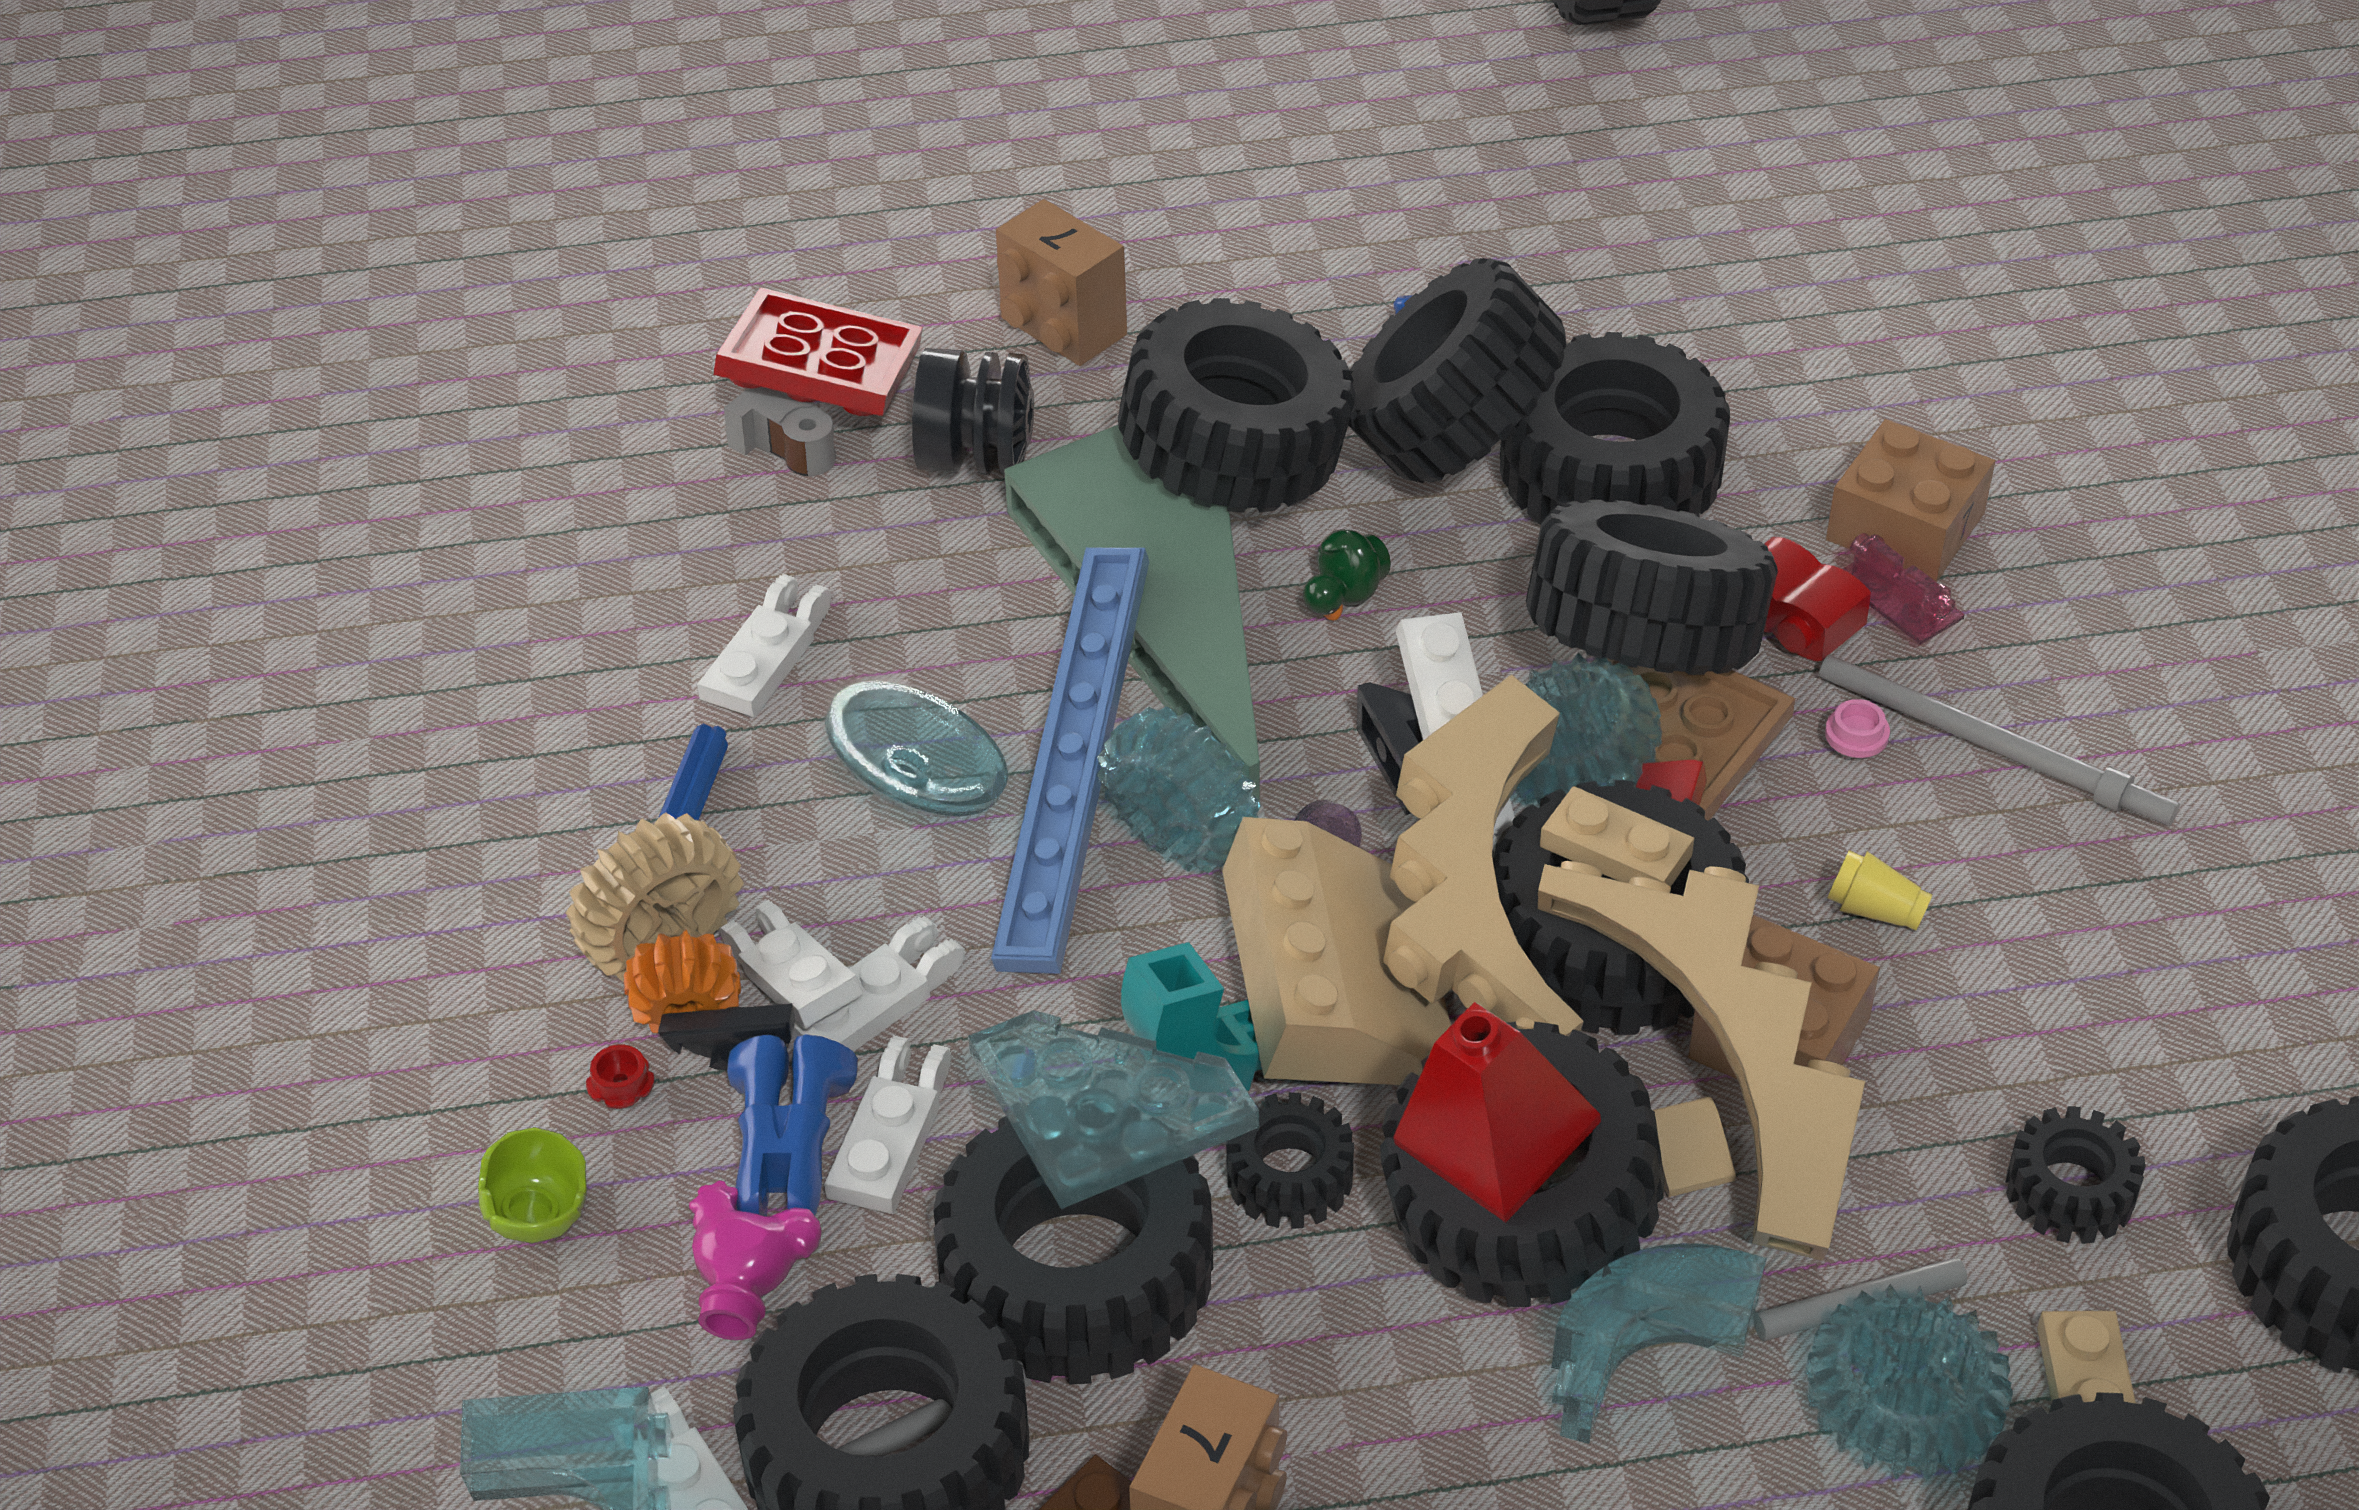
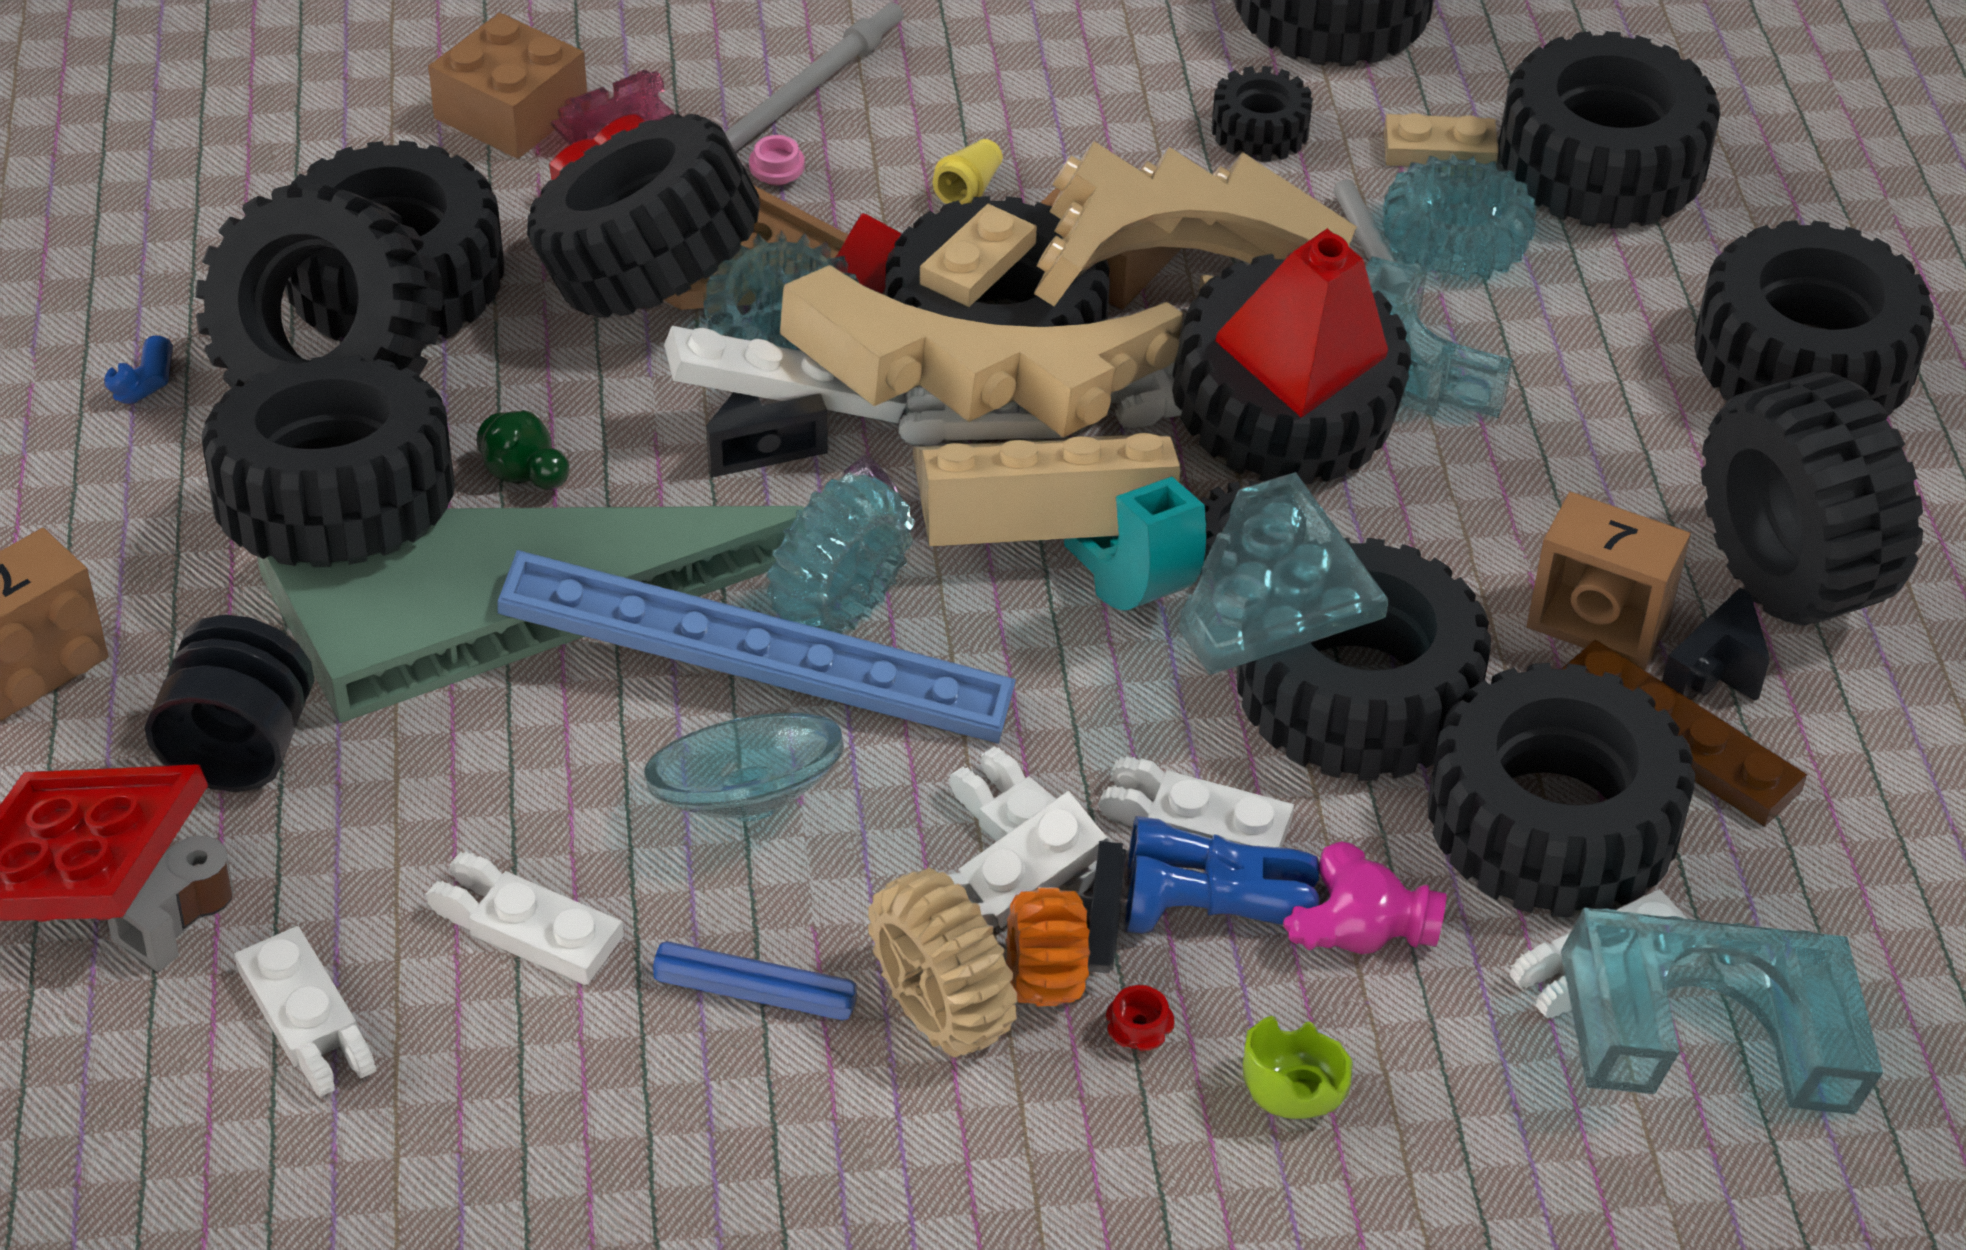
camera: 90 degrees left, 0 degrees up
(670, 528) = (303, 1007): none -> white hinge

